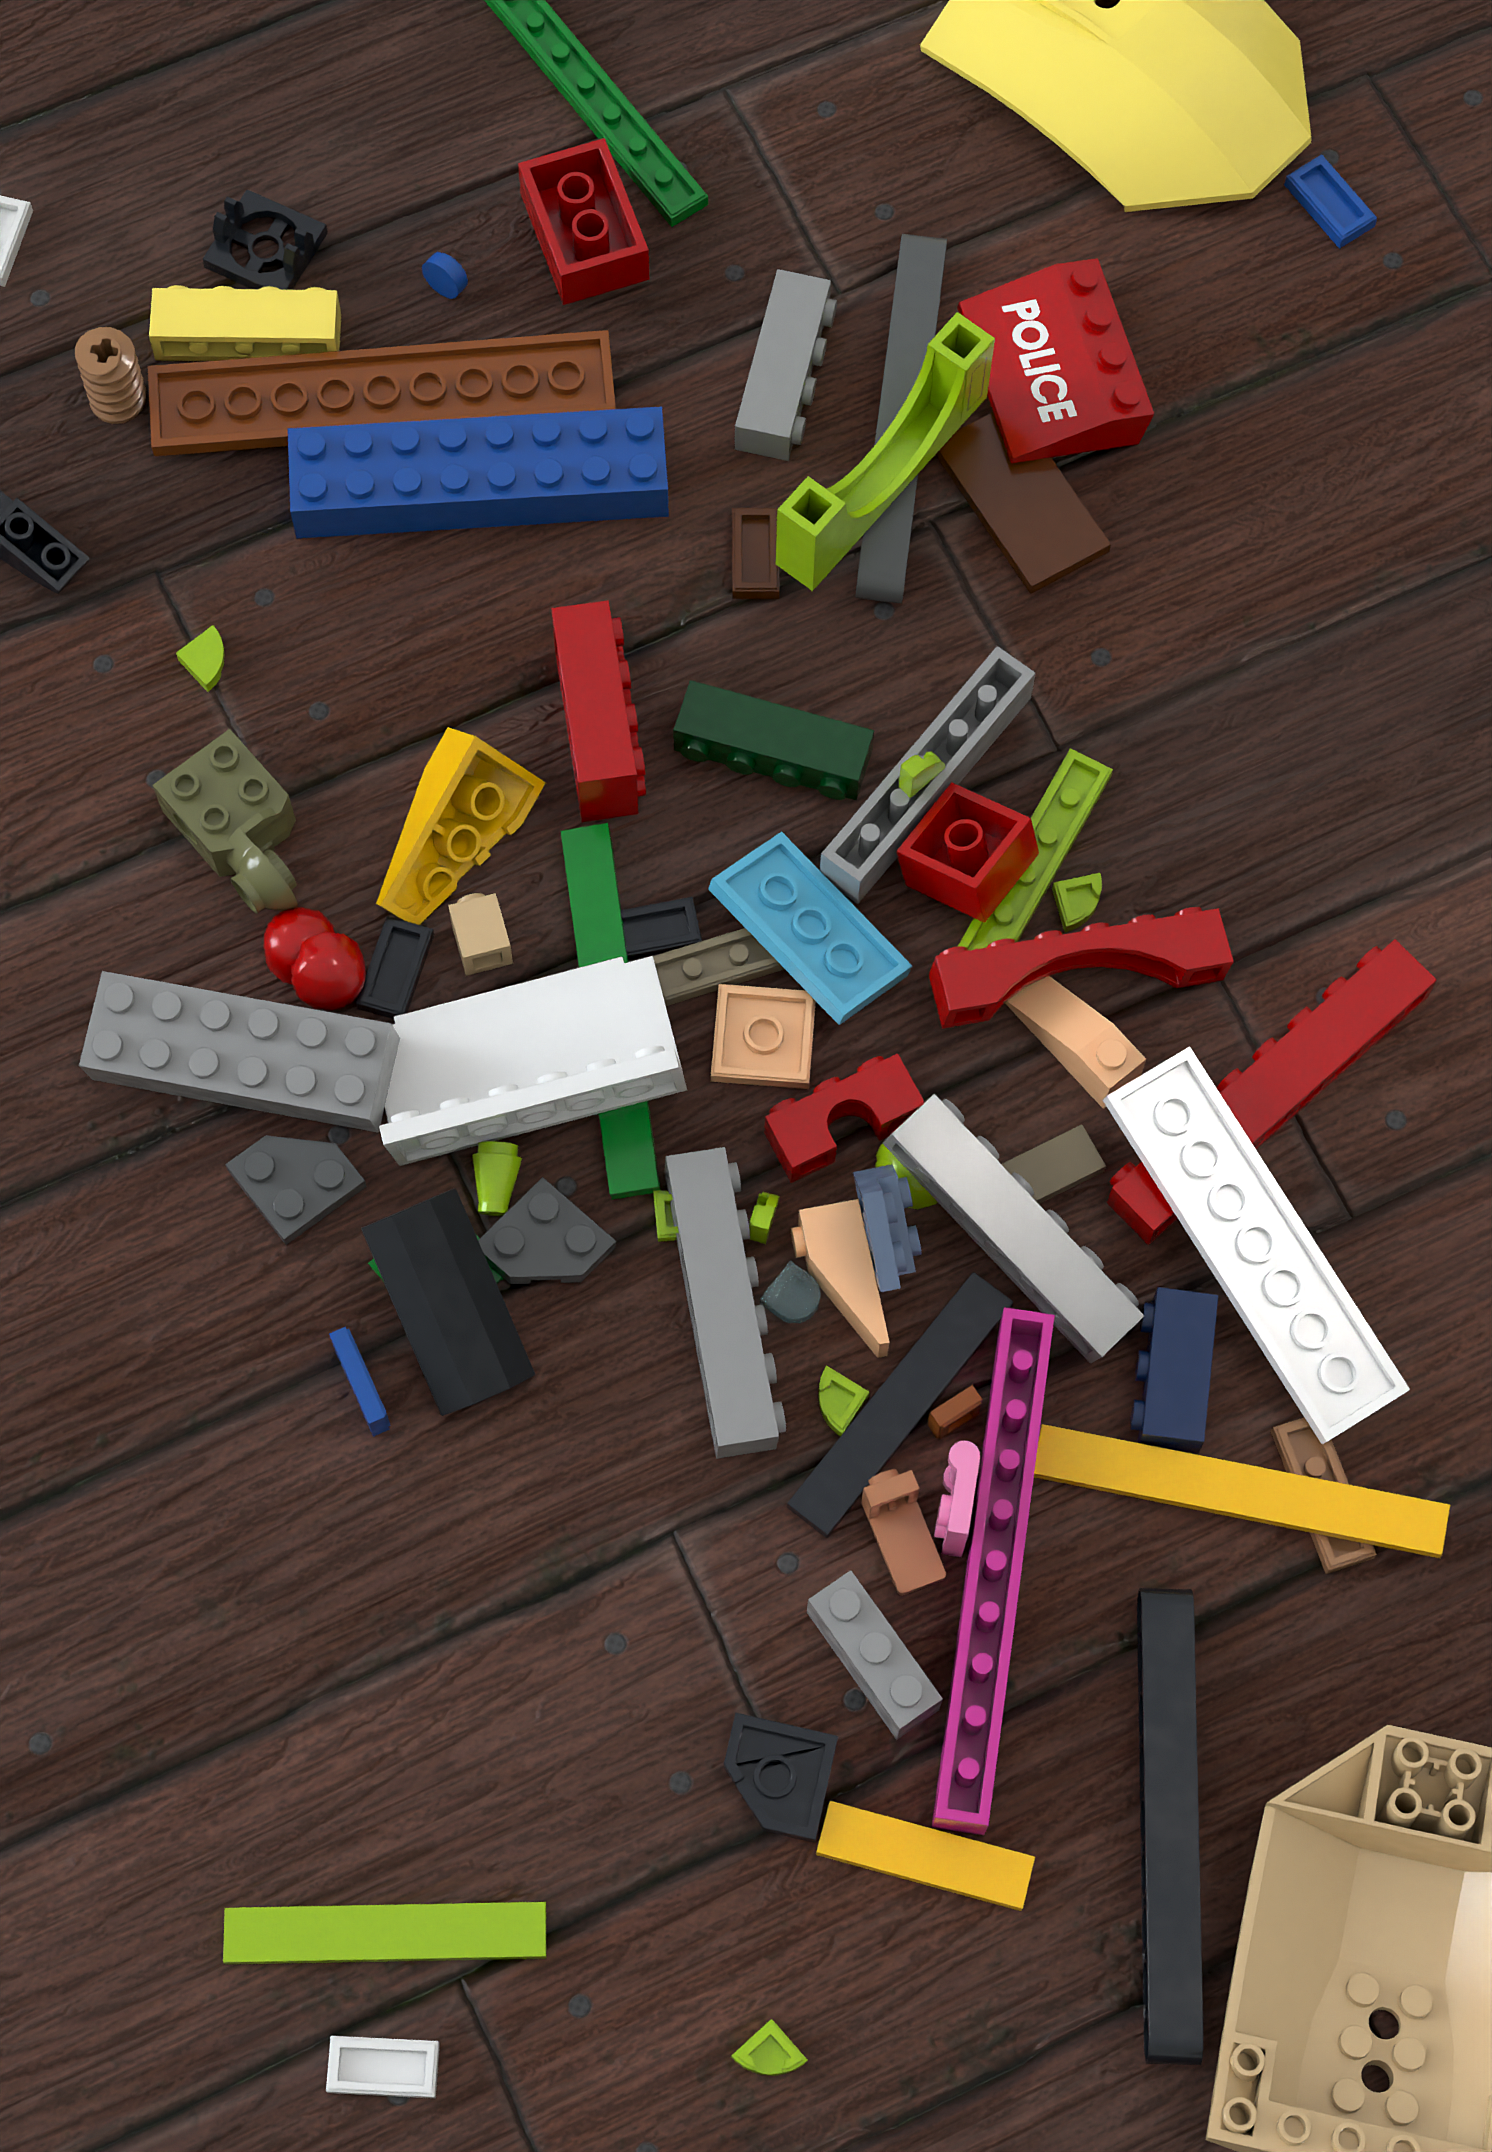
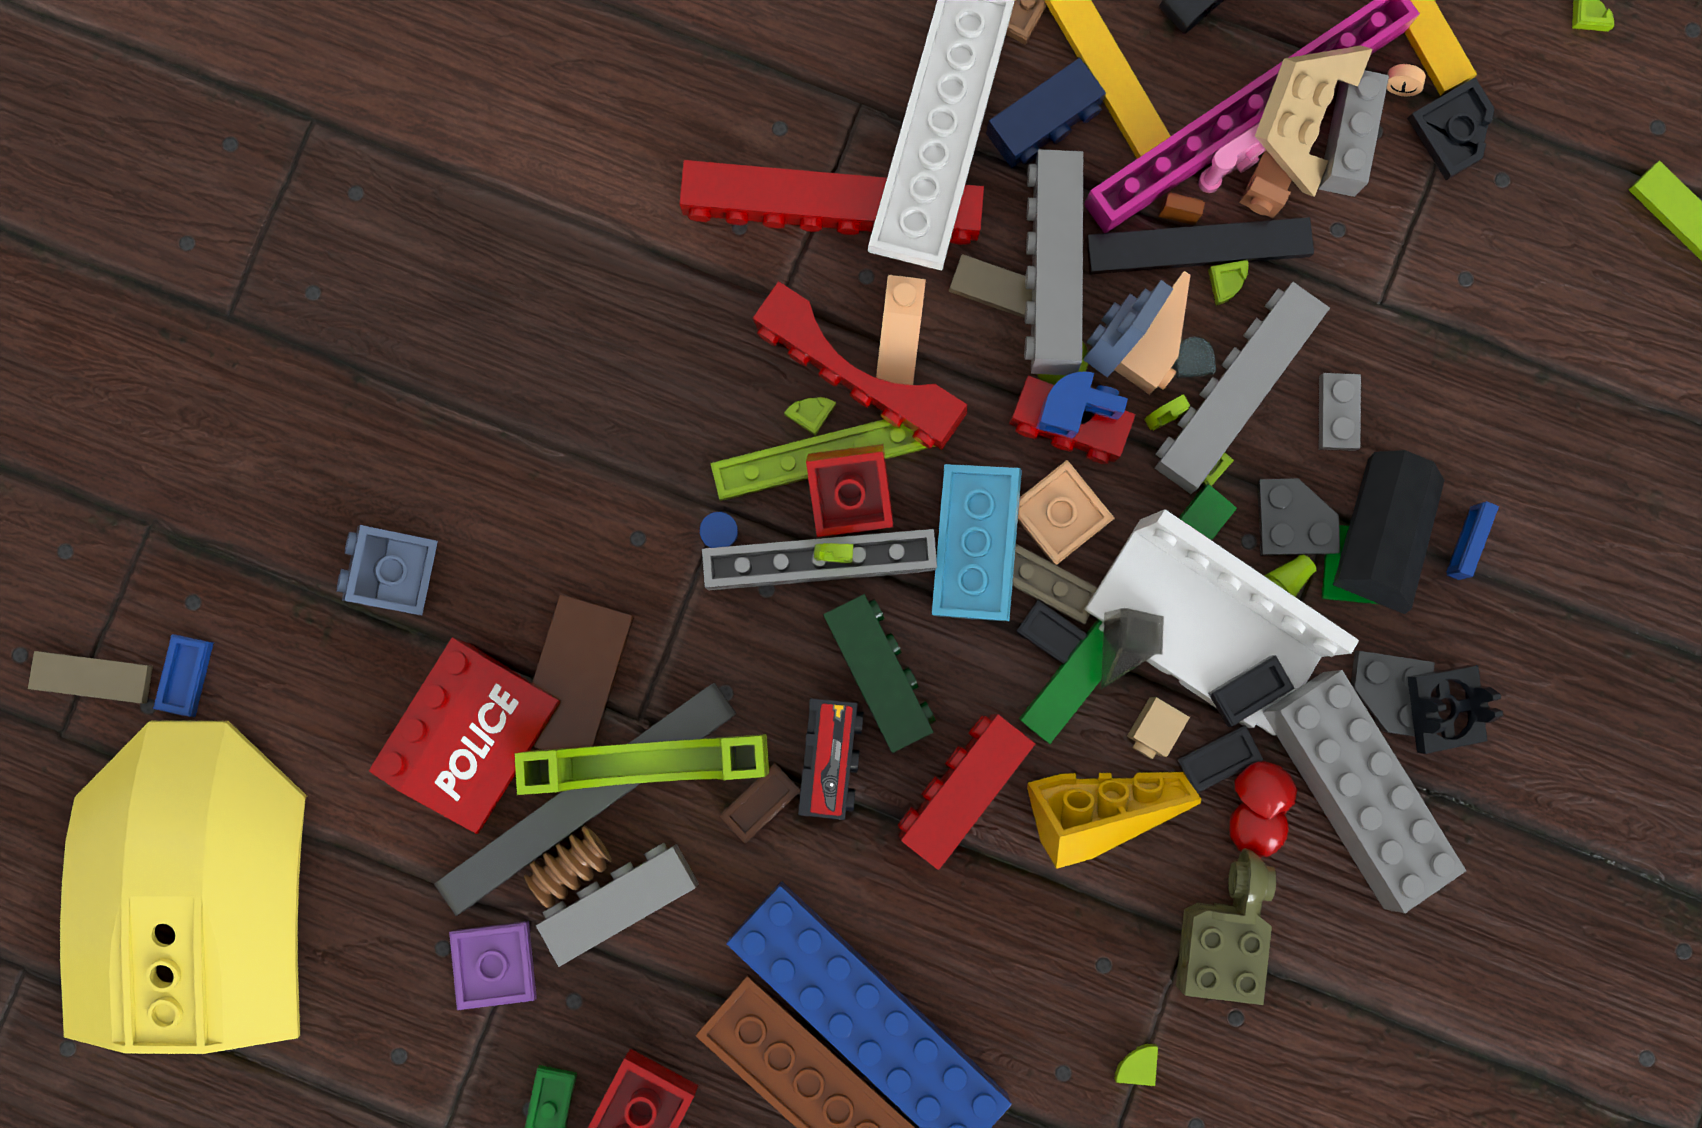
camera: 135 degrees left, 15 degrees up
(184, 1216) = (1426, 708): none -> black piece
(429, 1040) = (1251, 690): none -> black tile
(585, 963) = (1129, 641): none -> clear smoke slope
(606, 1383) = (1339, 411): none -> light grey plate
(739, 633) = (830, 759): none -> wedge
(830, 234) = (492, 965): none -> medium lavender tile
(857, 349) = (567, 868): none -> medium nougat piece
(863, 1104) = (1071, 397): none -> blue brick
(879, 1768) = (1405, 80): none -> light nougat tile
(954, 1577) = (1298, 106): none -> tan wing
(1040, 725) = (718, 530): none -> blue tile
(1270, 422) = (387, 569): none -> sand blue plate
(1398, 131) = (90, 677): none -> dark tan tile

